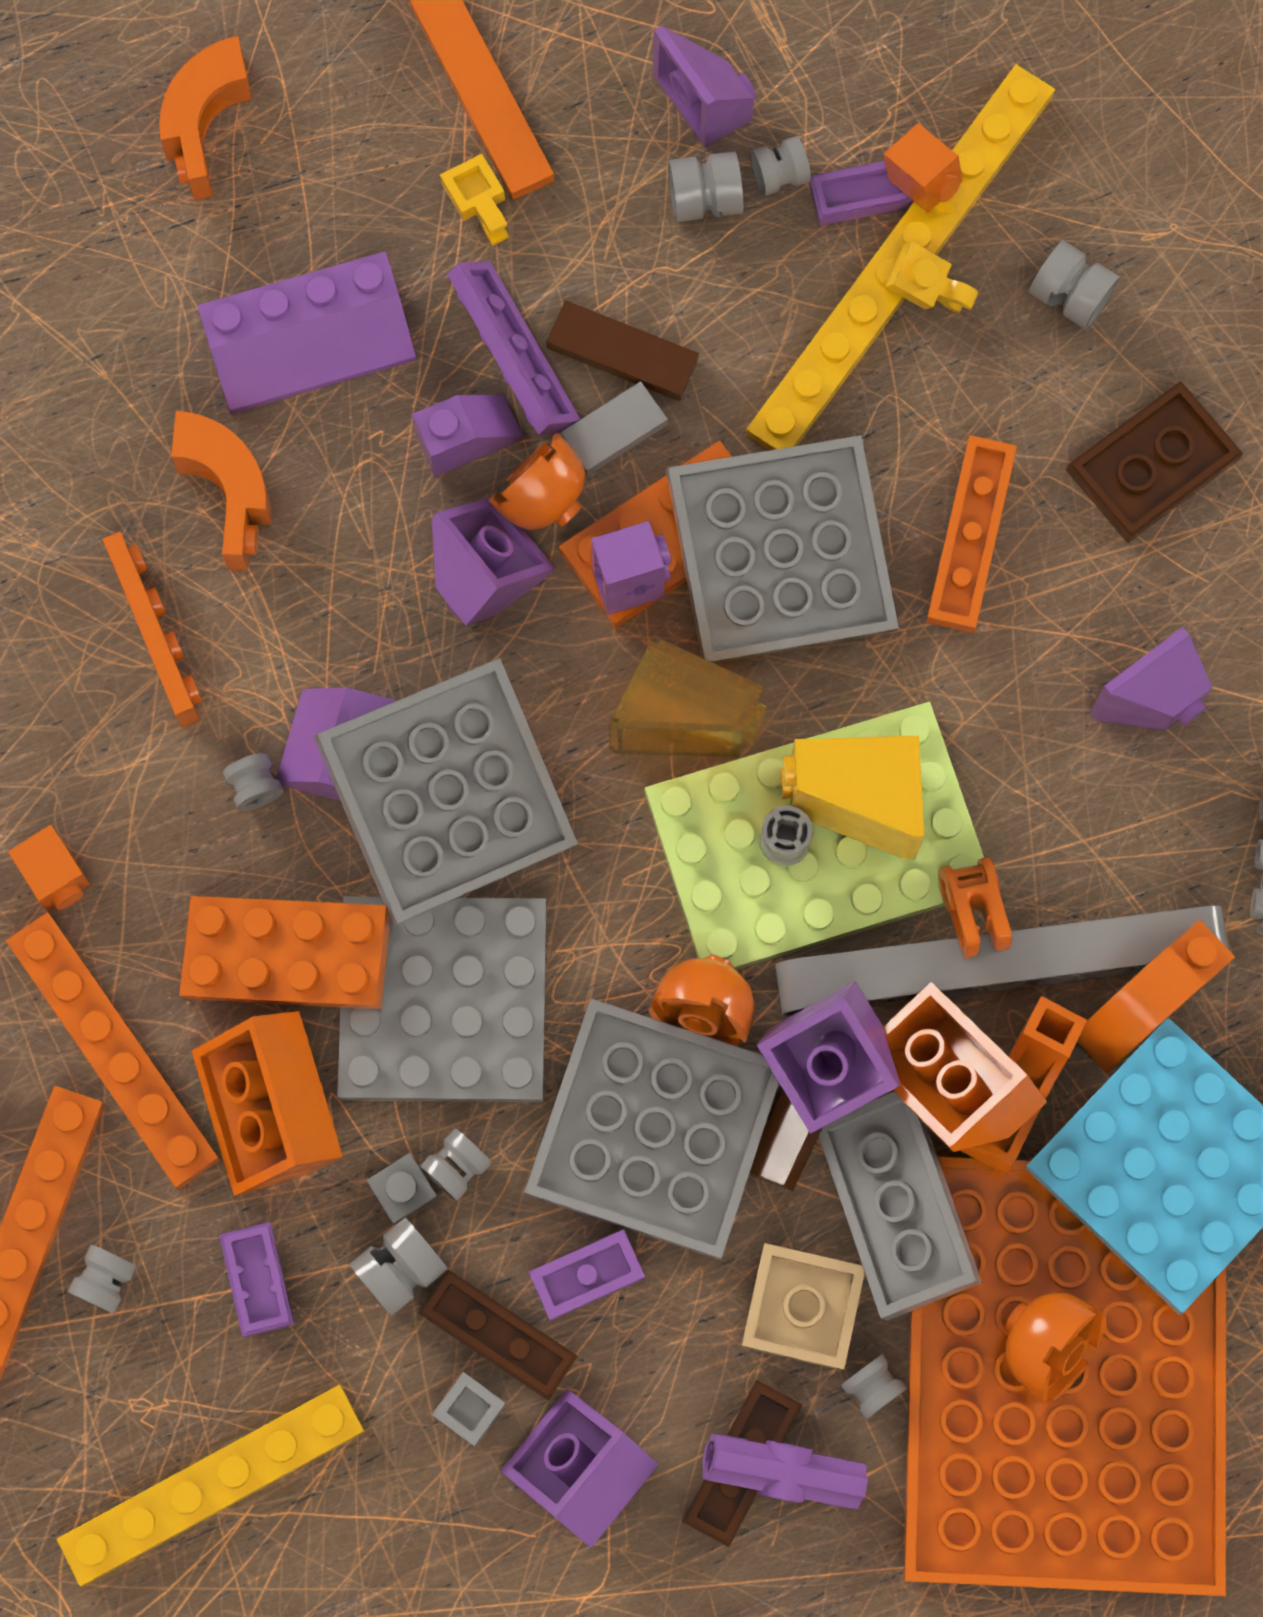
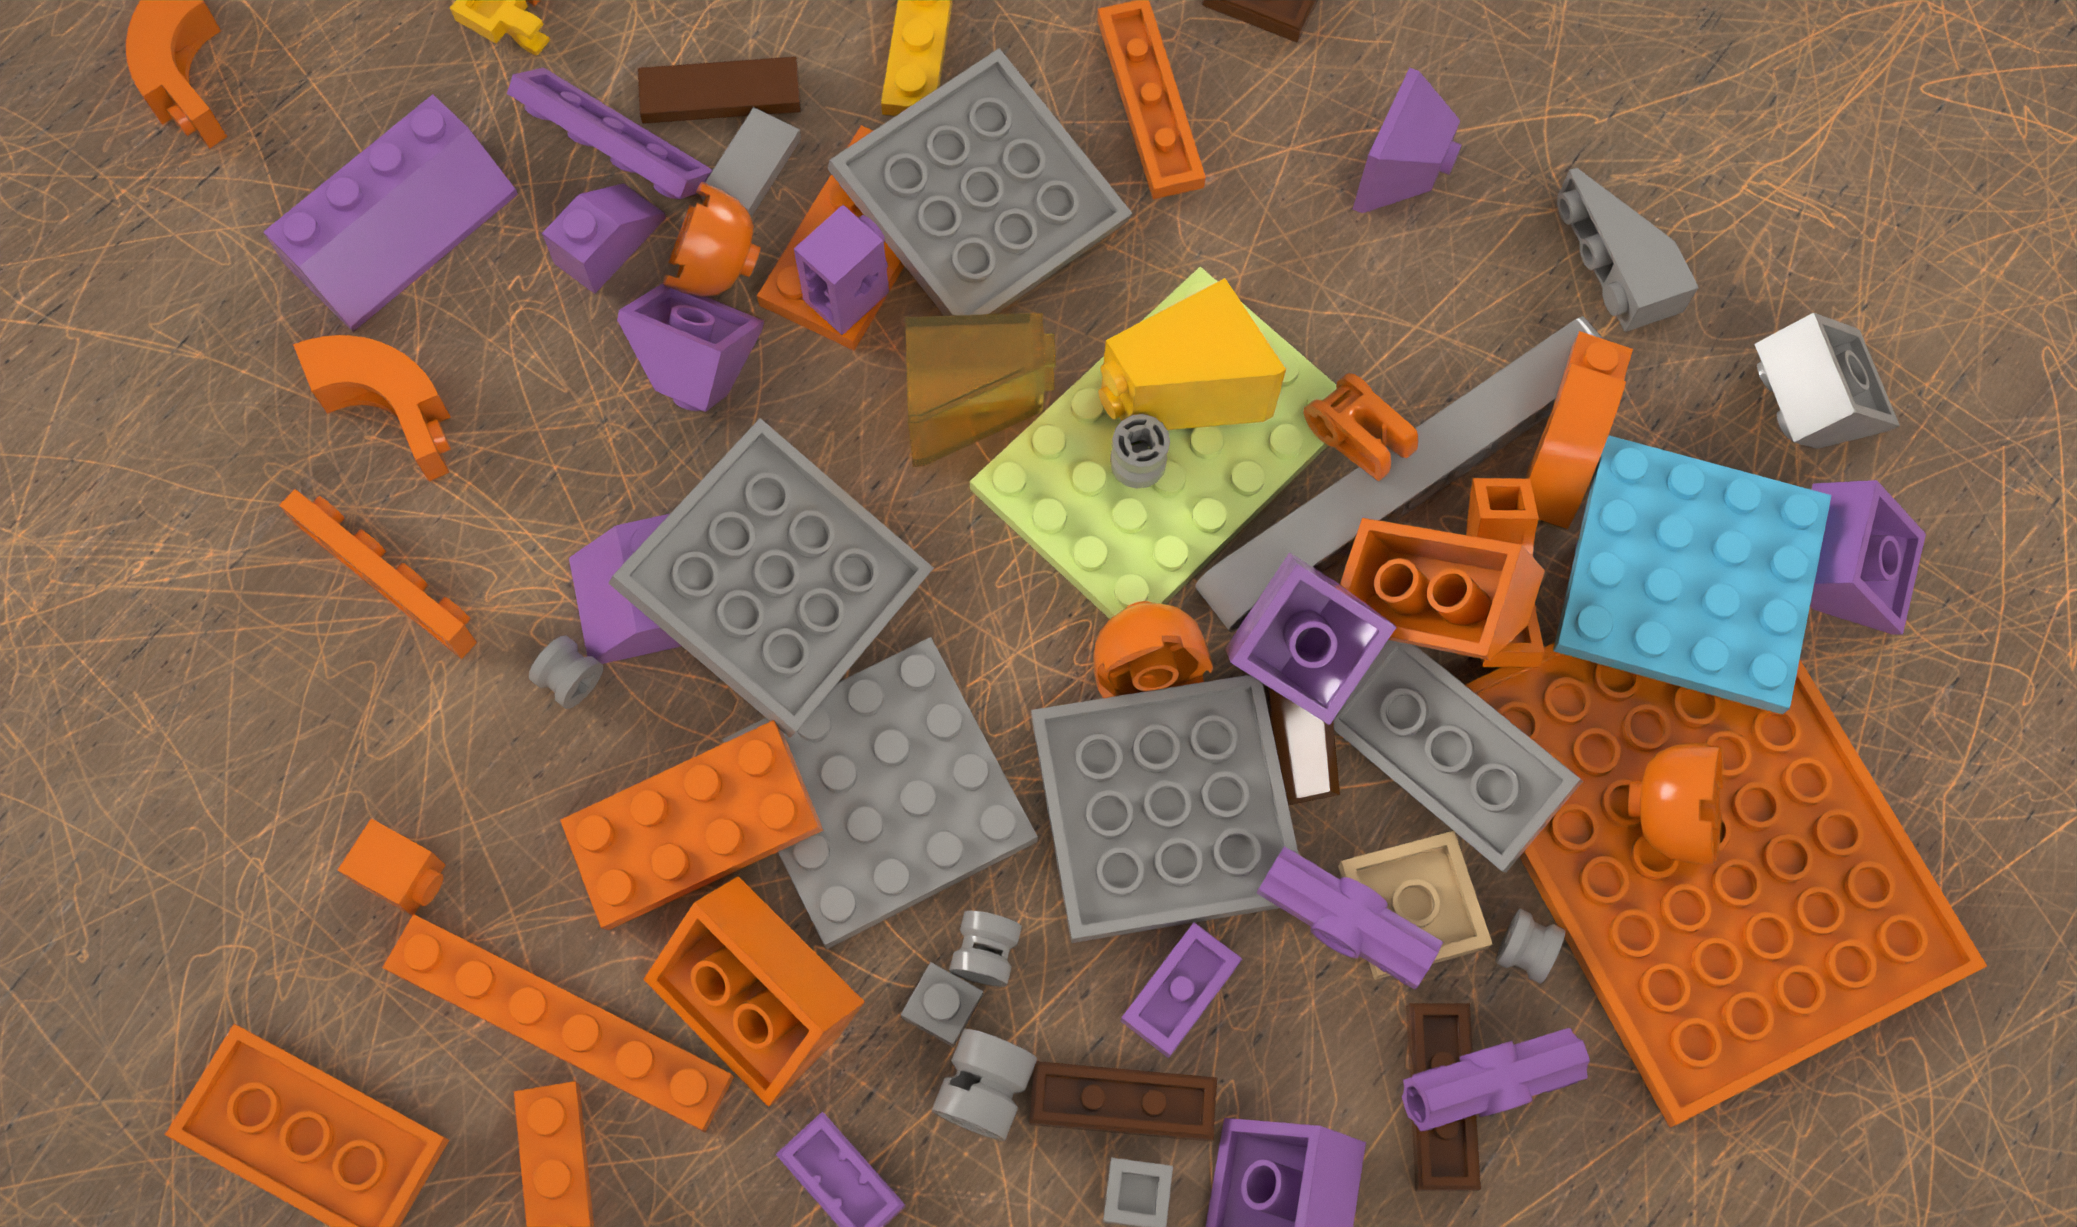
camera: 30 degrees left, 5 degrees down
(740, 1290) = (1350, 918): none -> medium lavender piece

